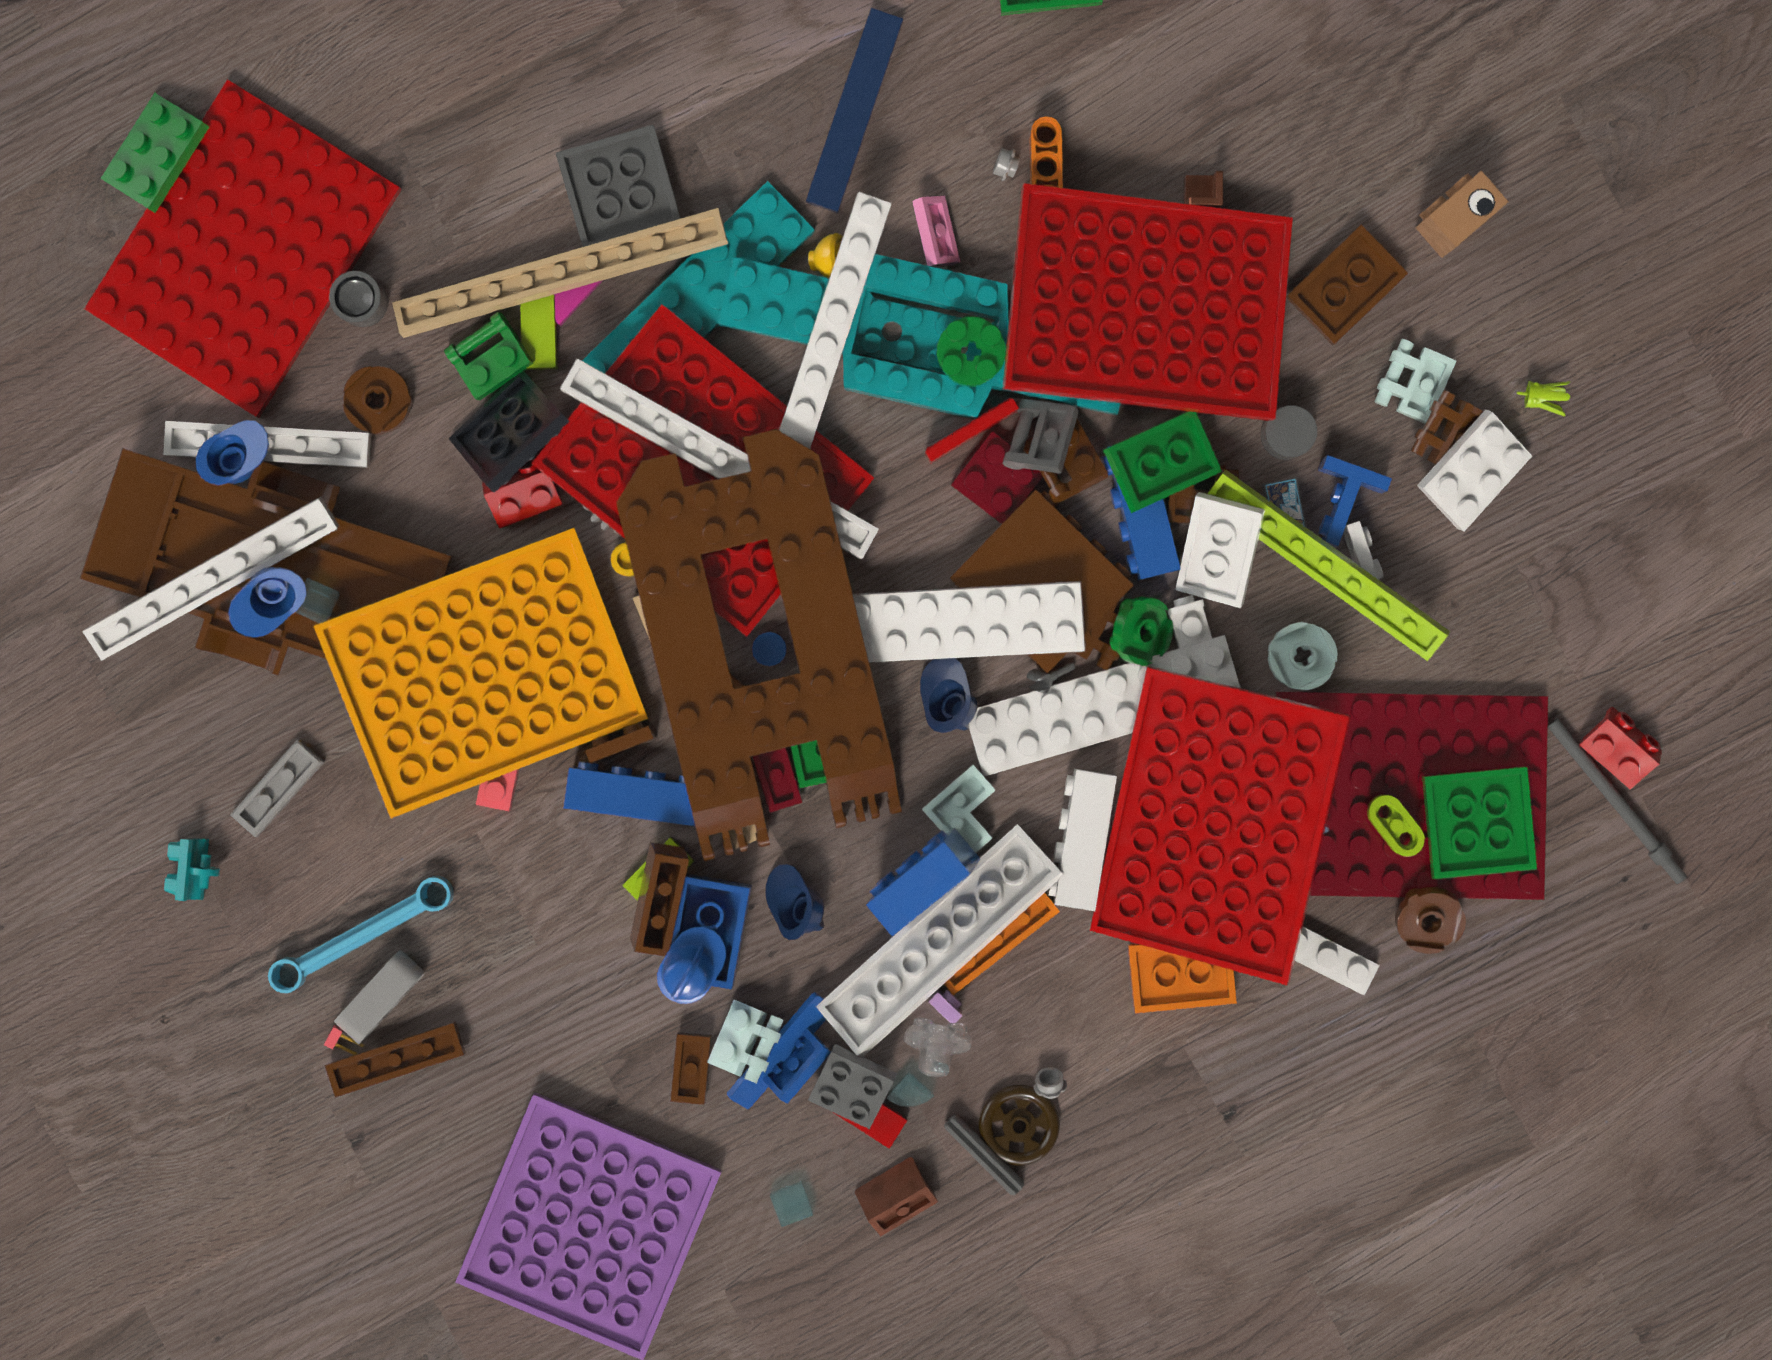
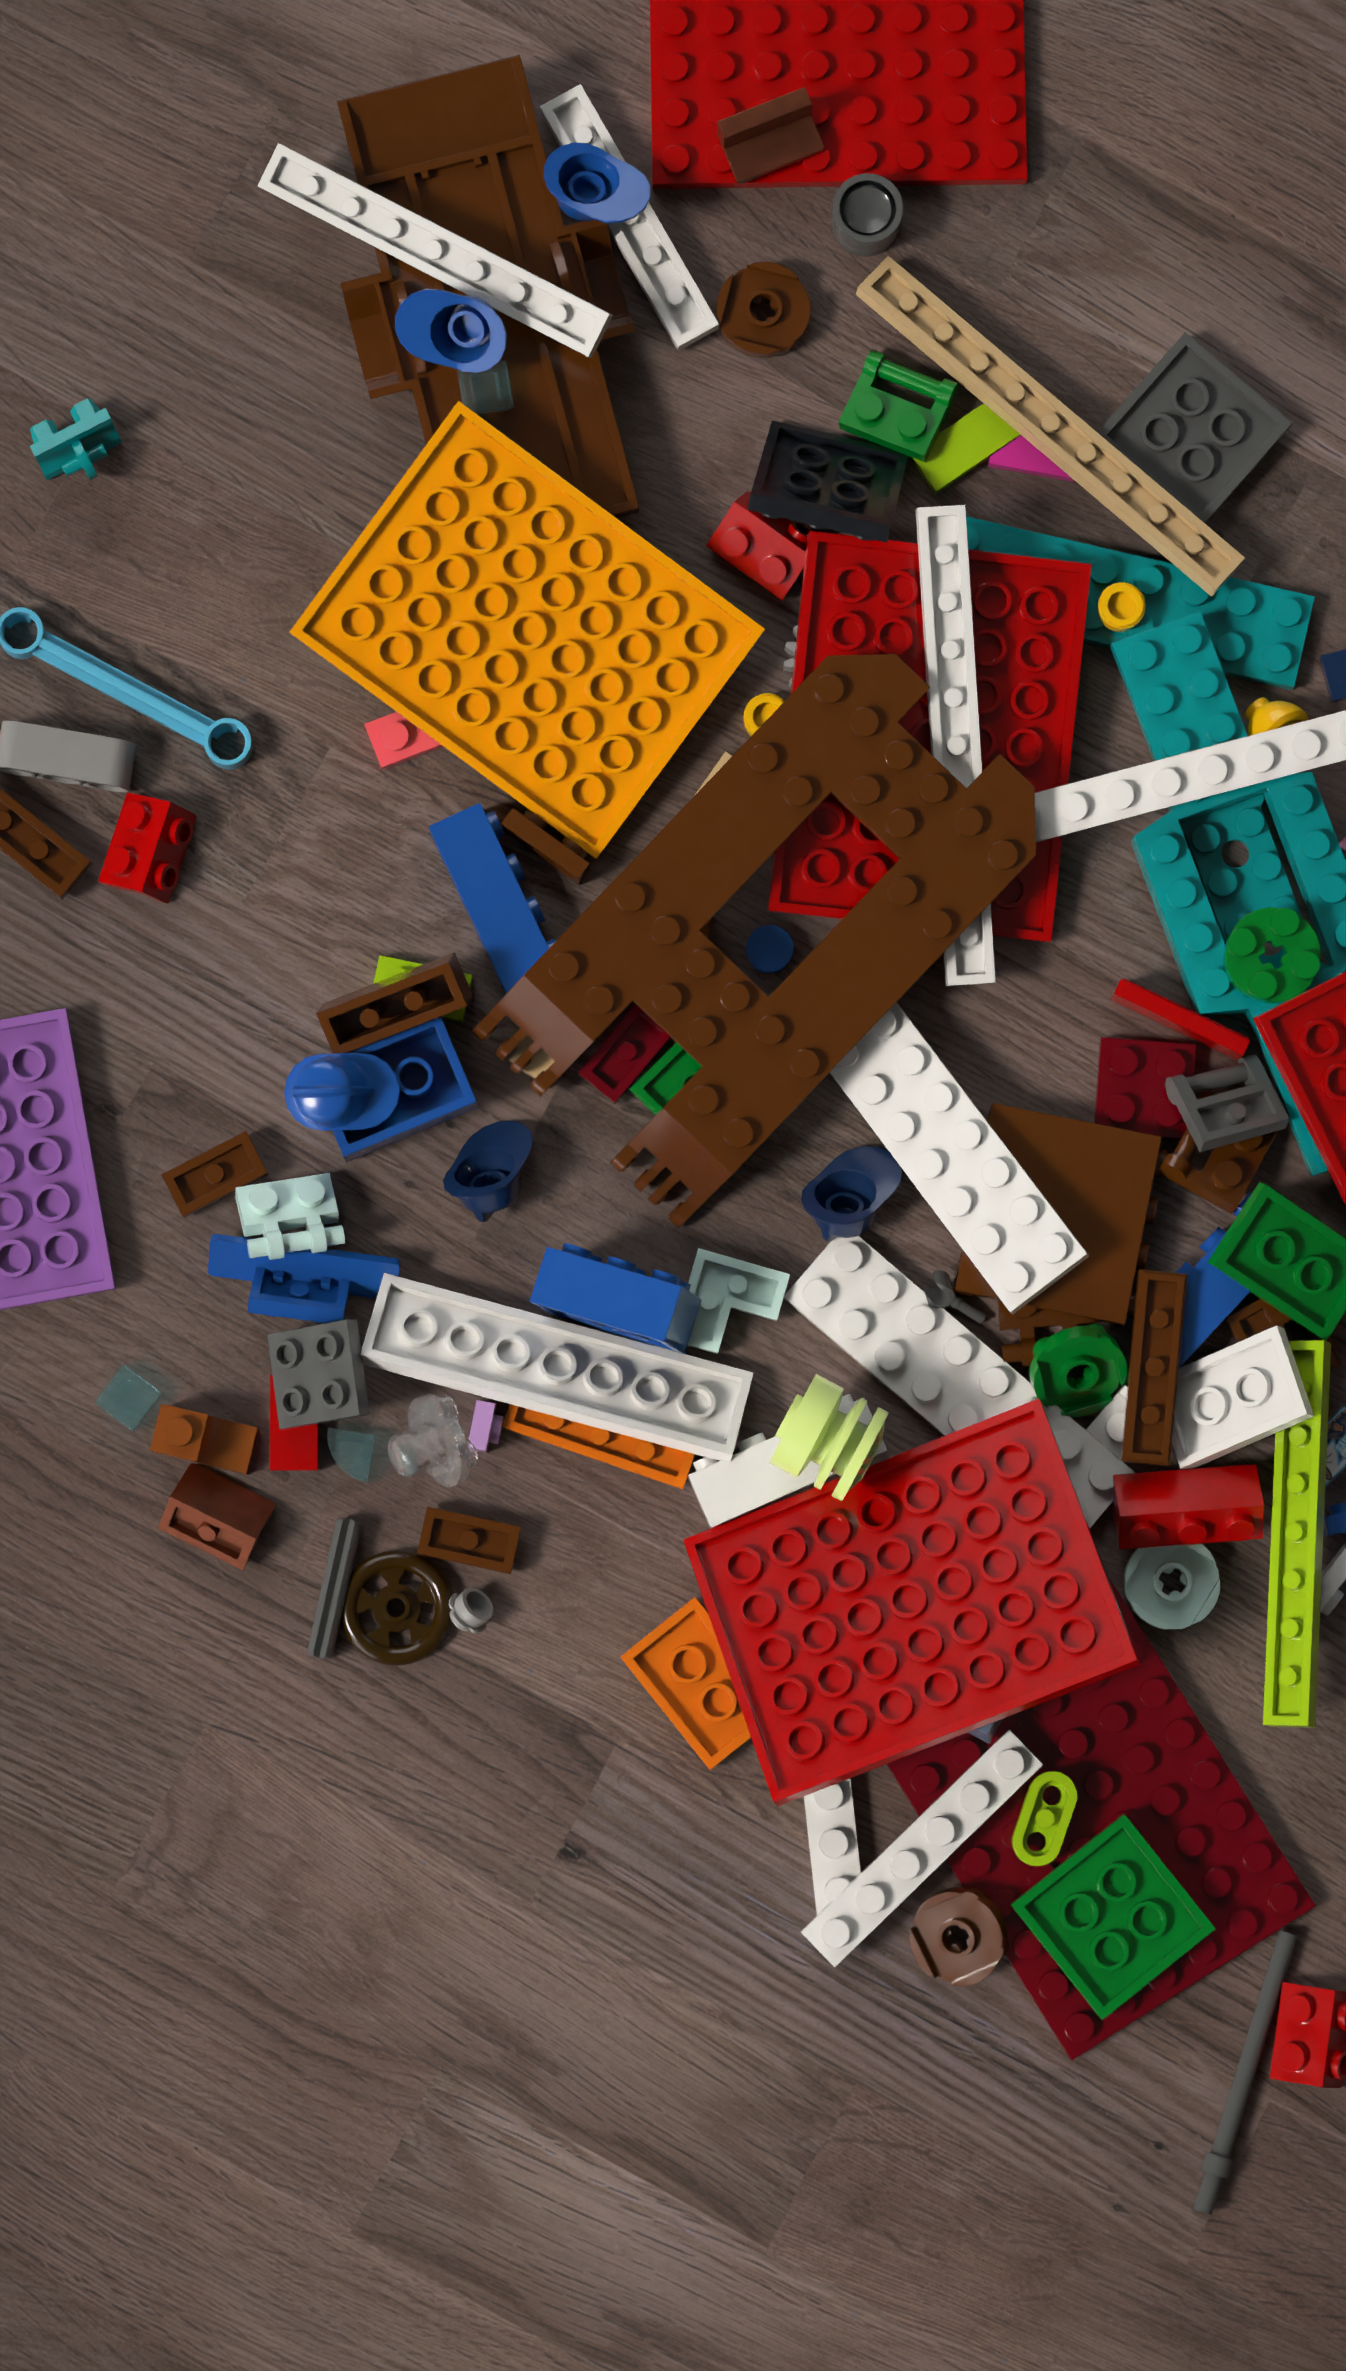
camera: 55 degrees right, 5 degrees down
(271, 326) = (769, 136): none -> copper panel
(277, 788) = (233, 483): light grey tile -> none
(467, 982) = (148, 847): none -> red bracket
(699, 302) = (1121, 607): none -> yellow tile
(845, 1177) = (204, 1439): none -> dark orange arch
(1007, 1057) = (469, 1540): none -> reddish brown plate
(1088, 811) = (828, 1437): none -> yellowish green wheel
(1171, 585) = (1153, 1367): none -> reddish brown tile
(1266, 618) = (1188, 1506): none -> red brick
(1365, 909) = (921, 1848): none -> white plate

